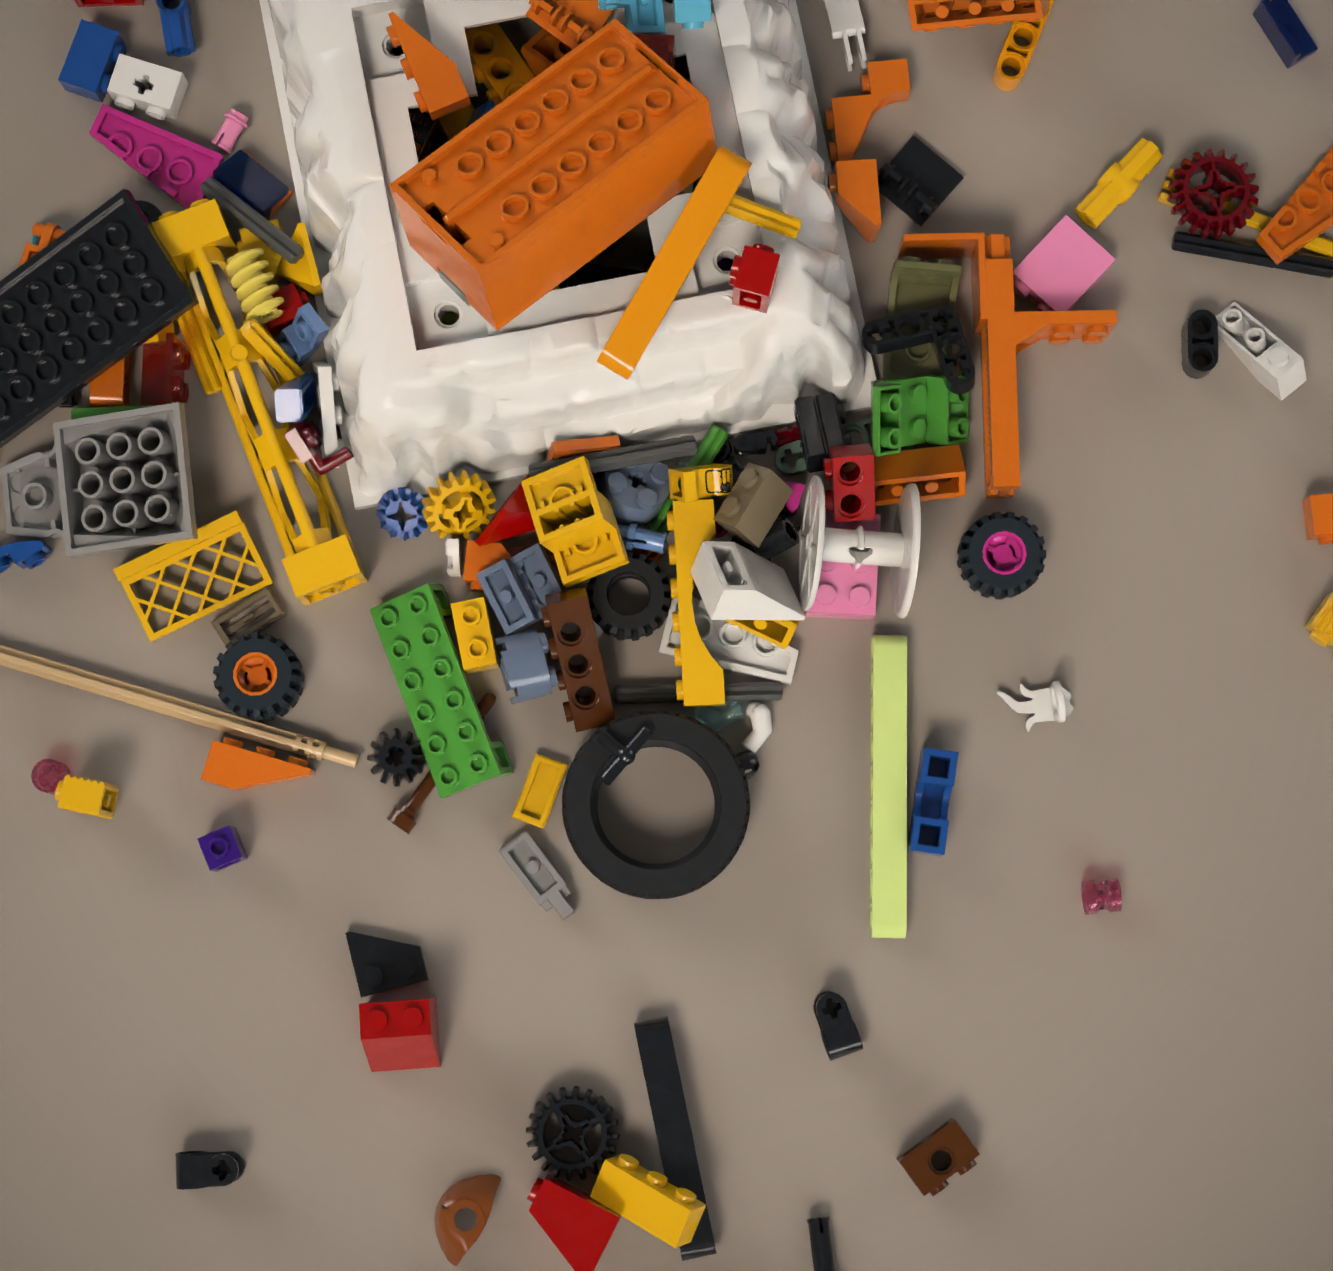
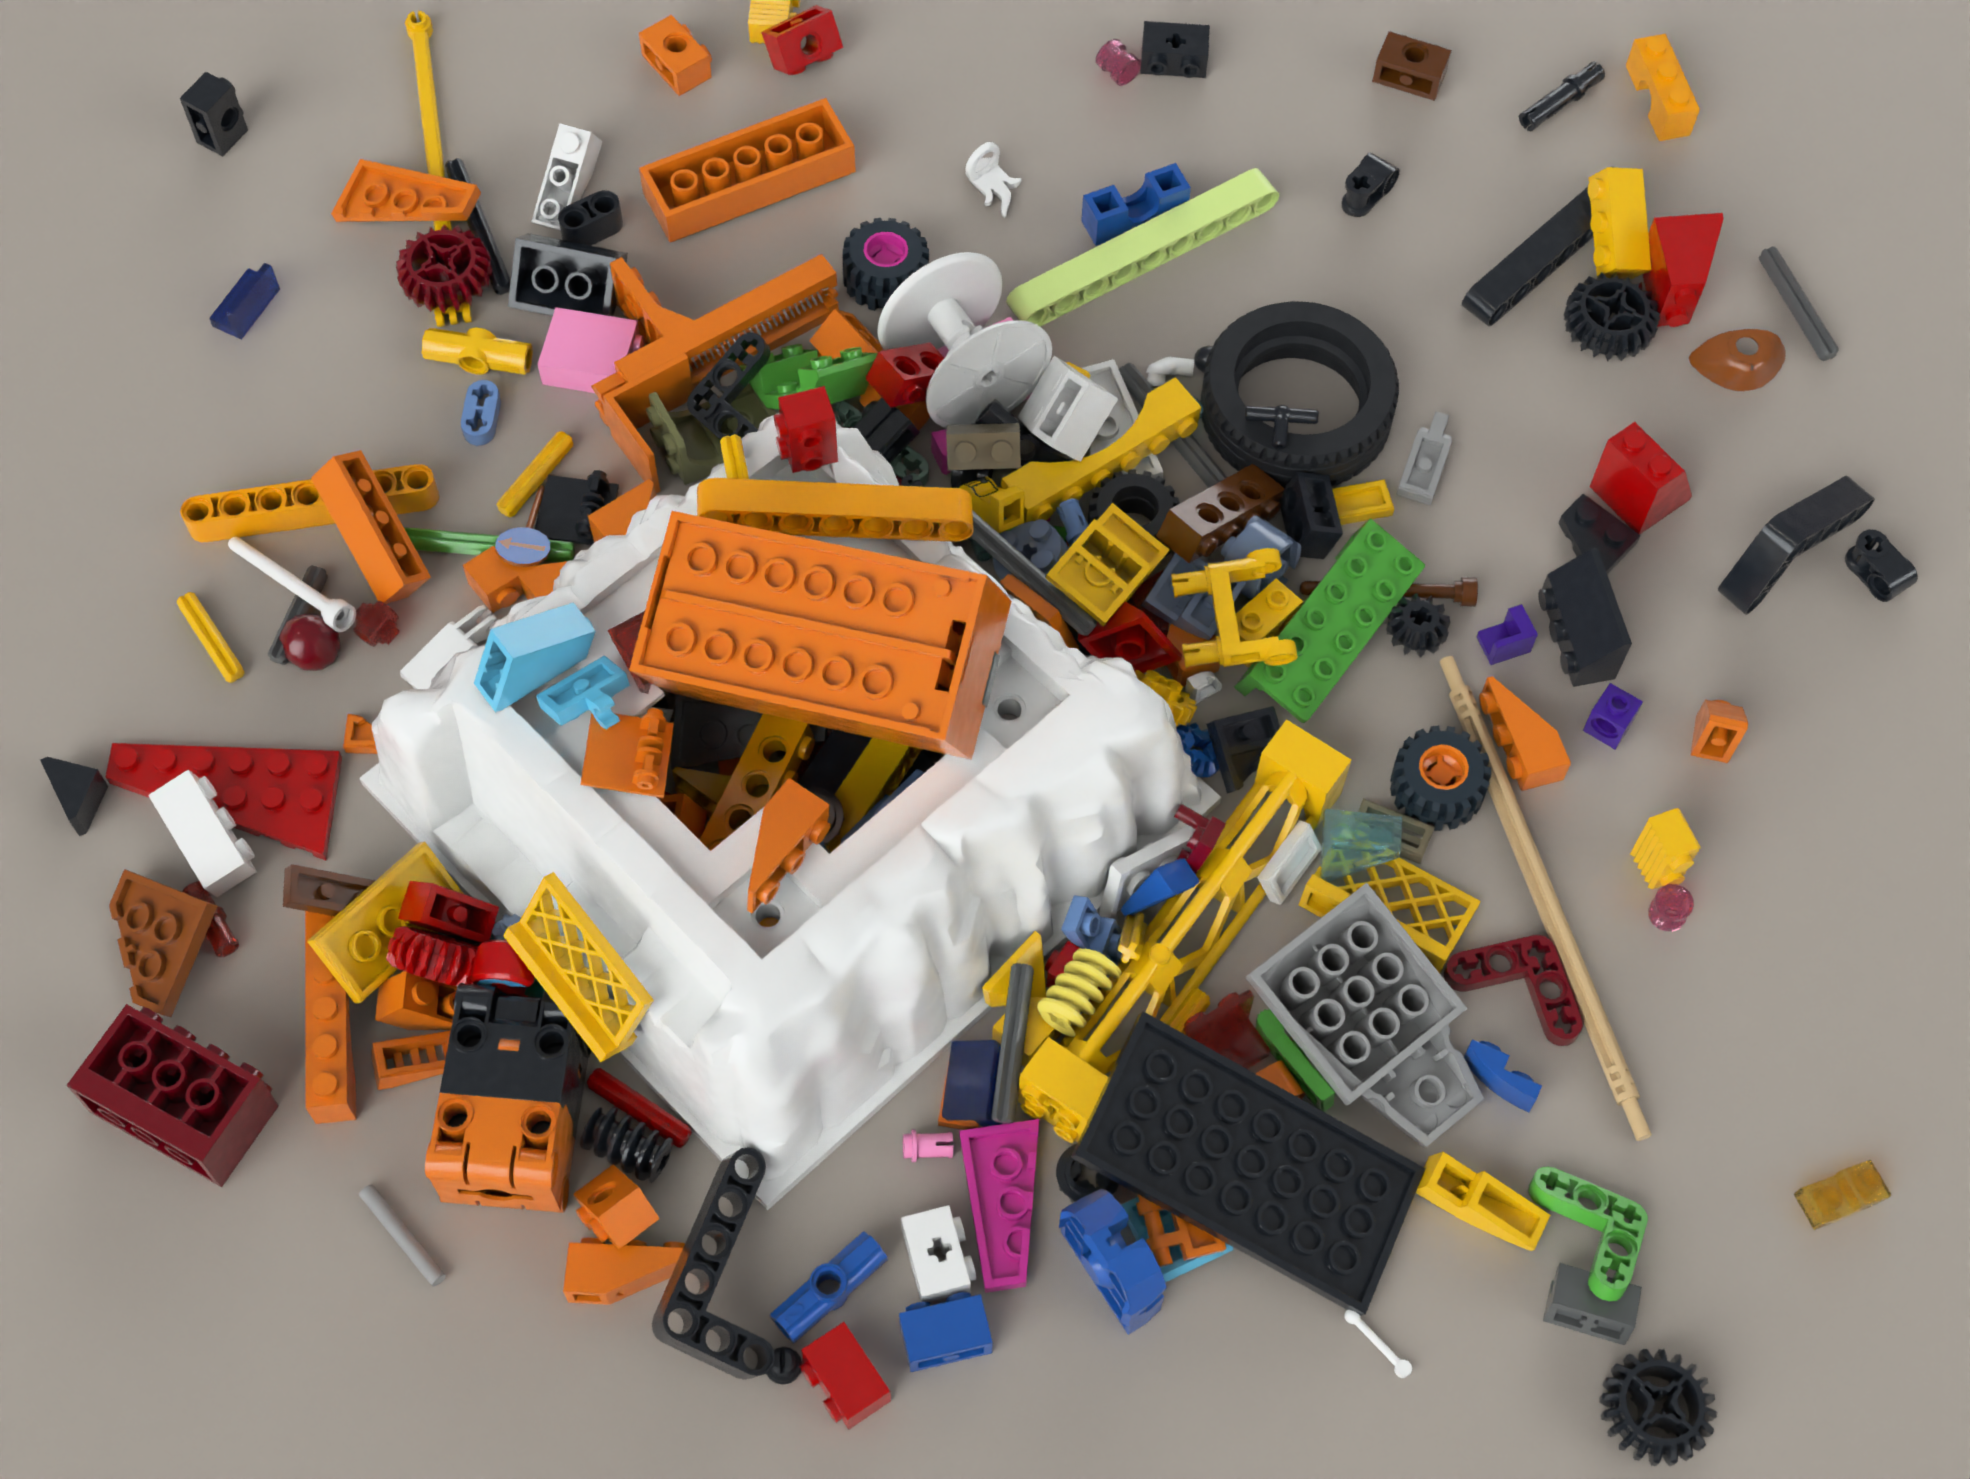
camera: 125 degrees left, 20 degrees down
(70, 193) = (1122, 1273): none -> blue connector
(83, 634) = (1521, 967): none -> dark red beam
(157, 921) = (1718, 730): none -> orange slope
(247, 575) = (1357, 842): none -> clear light blue wing
(265, 1118) = (1791, 535): none -> black beam
(268, 520) = (1289, 862): none -> white tile
(311, 883) = (1585, 620): none -> black slope
(344, 820) = (1510, 638): none -> dark purple panel
(383, 552) = (1240, 742): none -> black wing
(507, 598) = (1217, 581): none -> yellow connector
(541, 736) = (1311, 514): none -> black brick
(897, 115) = (524, 544): none -> piece
(927, 95) = (475, 543): none -> bright green axle
(971, 168) = (535, 474): none -> yellow axle
(1054, 164) = (473, 411): none -> medium blue beam
(1101, 945) = (1175, 49): none -> black brick
(1152, 291) = (562, 275): none -> black slope
(1169, 498) = (747, 169): none -> orange brick
(1288, 629) = (785, 39): none -> red brick

